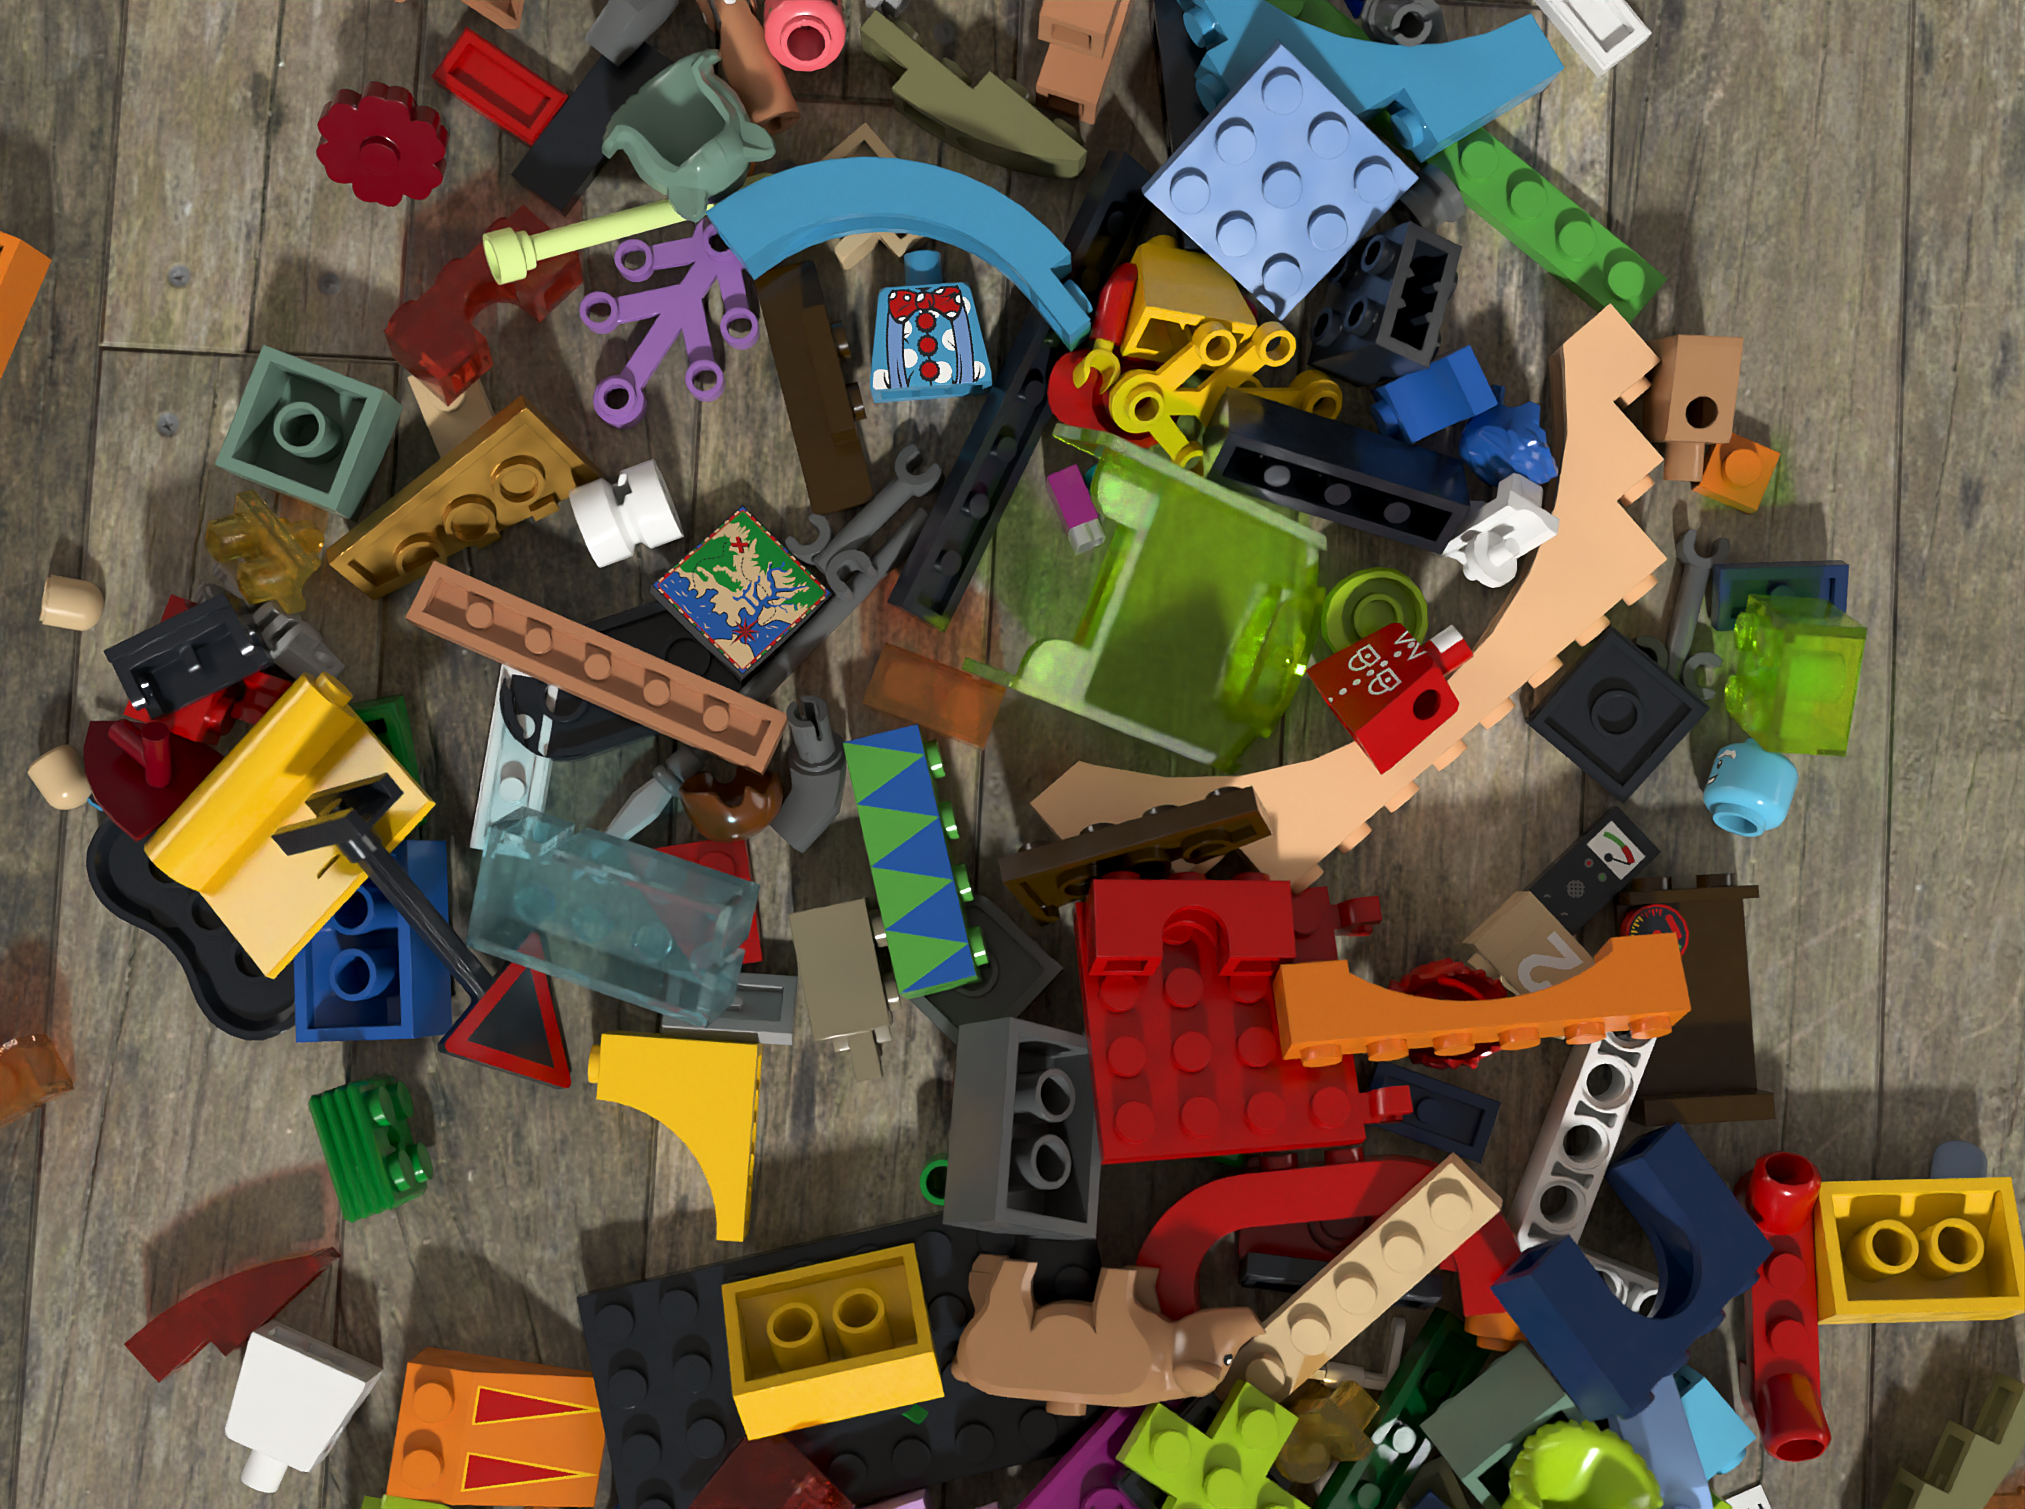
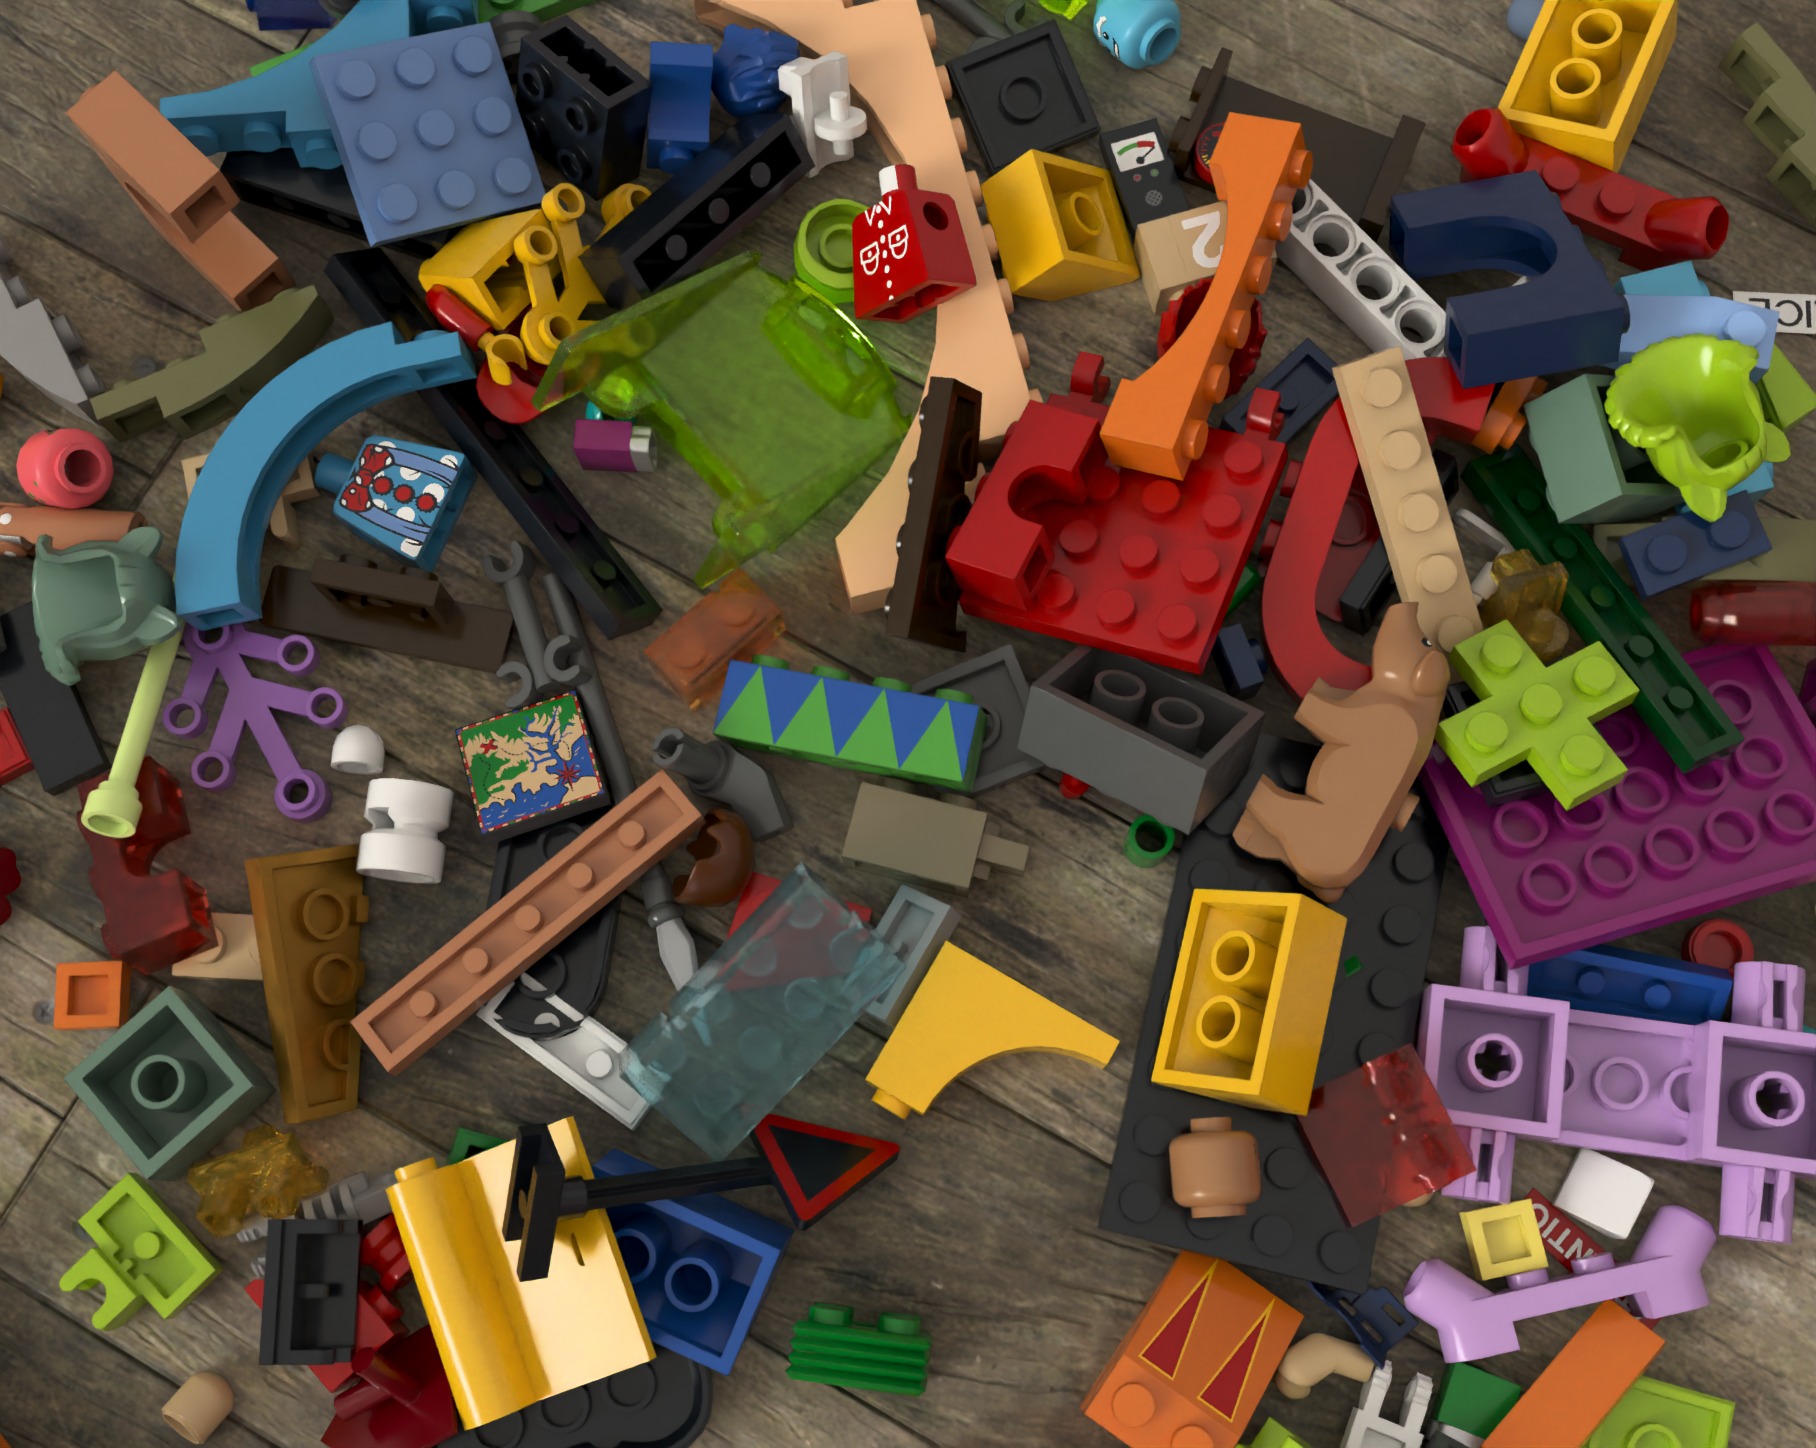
camera: 55 degrees left, 10 degrees down
(163, 486) = (140, 1256): none -> lime plate
(354, 319) = (92, 995): none -> orange plate
(665, 1380) = (1215, 1168): none -> medium nougat head
(683, 429) = (358, 751): none -> white hinge
(1149, 1186) = (1239, 662): none -> dark blue plate
(1497, 814) = (1058, 227): none -> yellow slope

